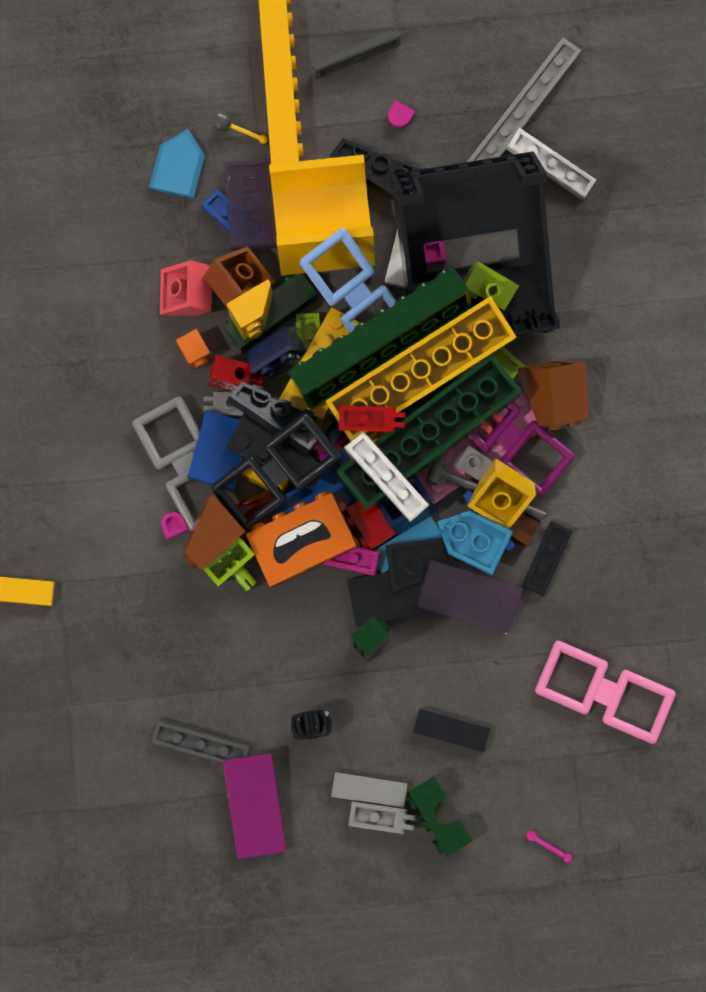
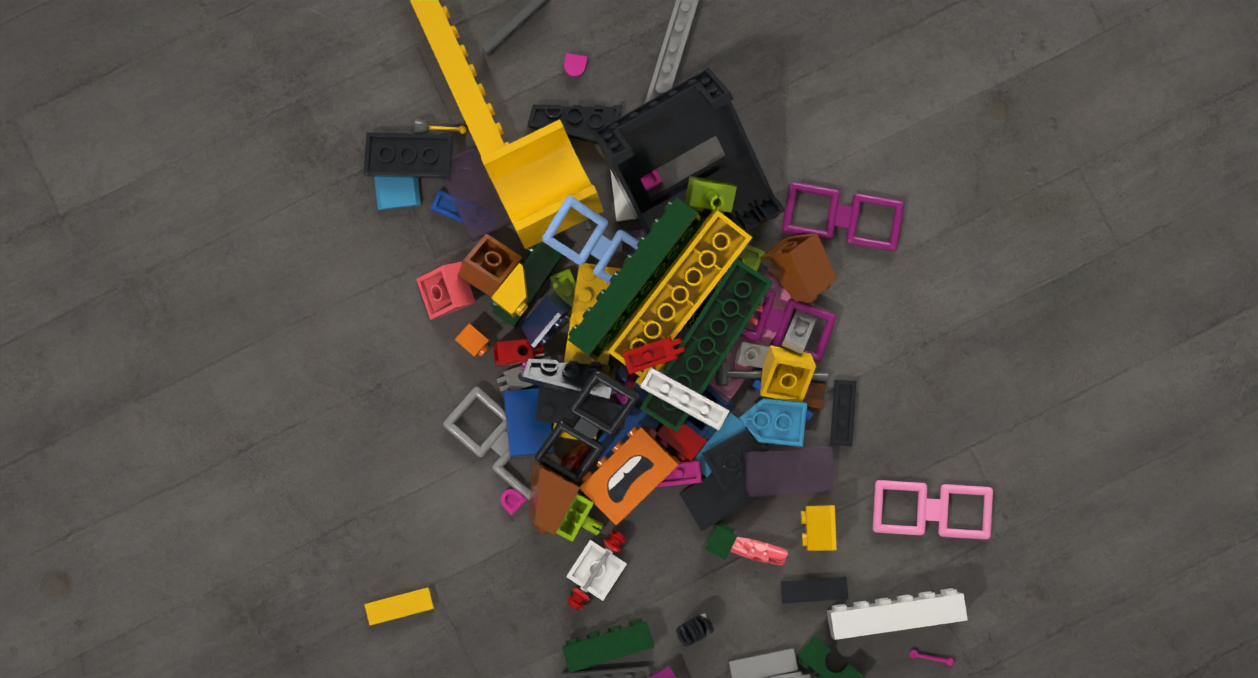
camera: 20 degrees left, 5 degrees up
(199, 143) = (408, 155): none -> black tile
(215, 709) = (607, 646): none -> dark green brick
(232, 627) = (596, 570): none -> white plate
(408, 668) = (759, 551): none -> coral hinge
(479, 666) = (819, 528): none -> yellow slope
(529, 786) = (896, 615): none -> white brick
(531, 456) = (799, 331): none -> light grey hinge
(556, 166) = (723, 62): white tile -> none
(619, 360) = (843, 216): none -> magenta bar

